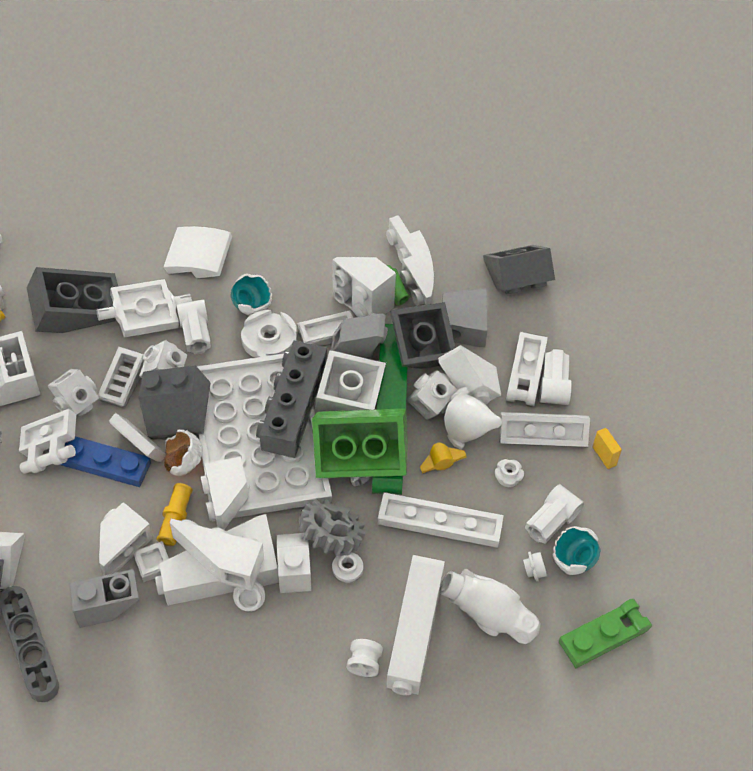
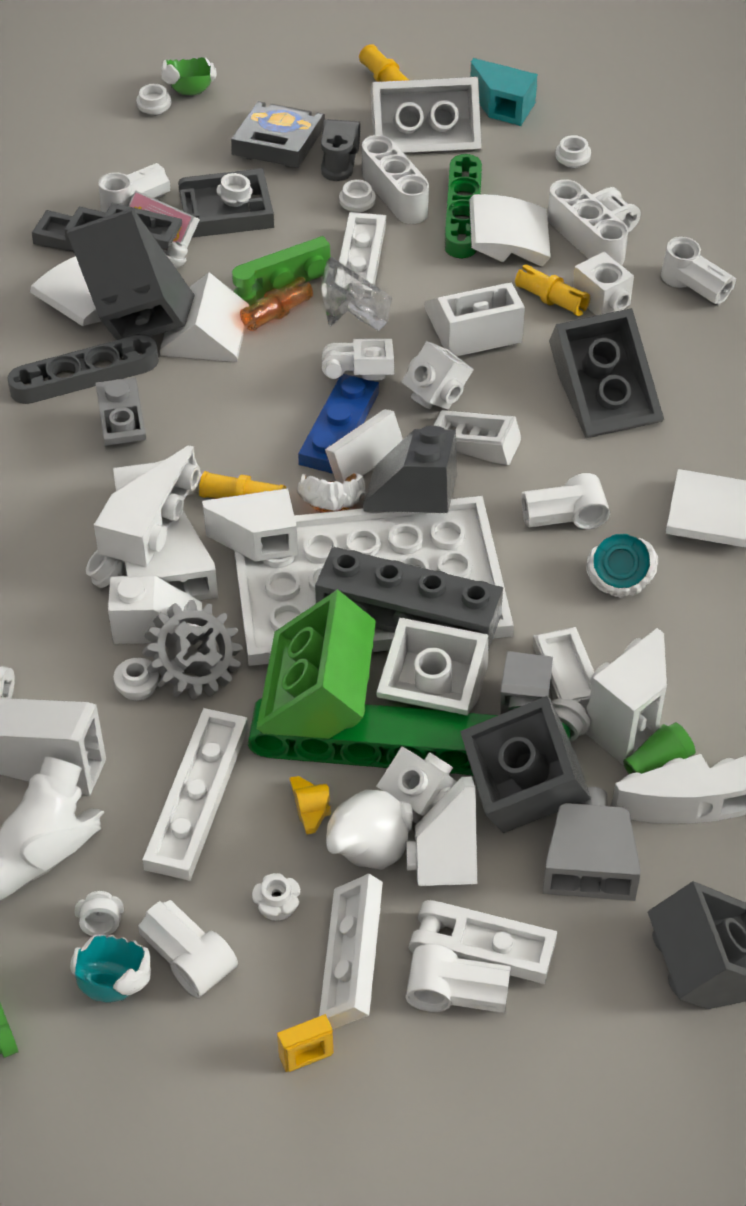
camera: 95 degrees right, 5 degrees down
(120, 535) = (216, 433): white slope -> none
(143, 308) = (594, 442): white plate -> none
(163, 356) = (470, 469): white brick -> none
(265, 321) = (547, 612): white plate -> none

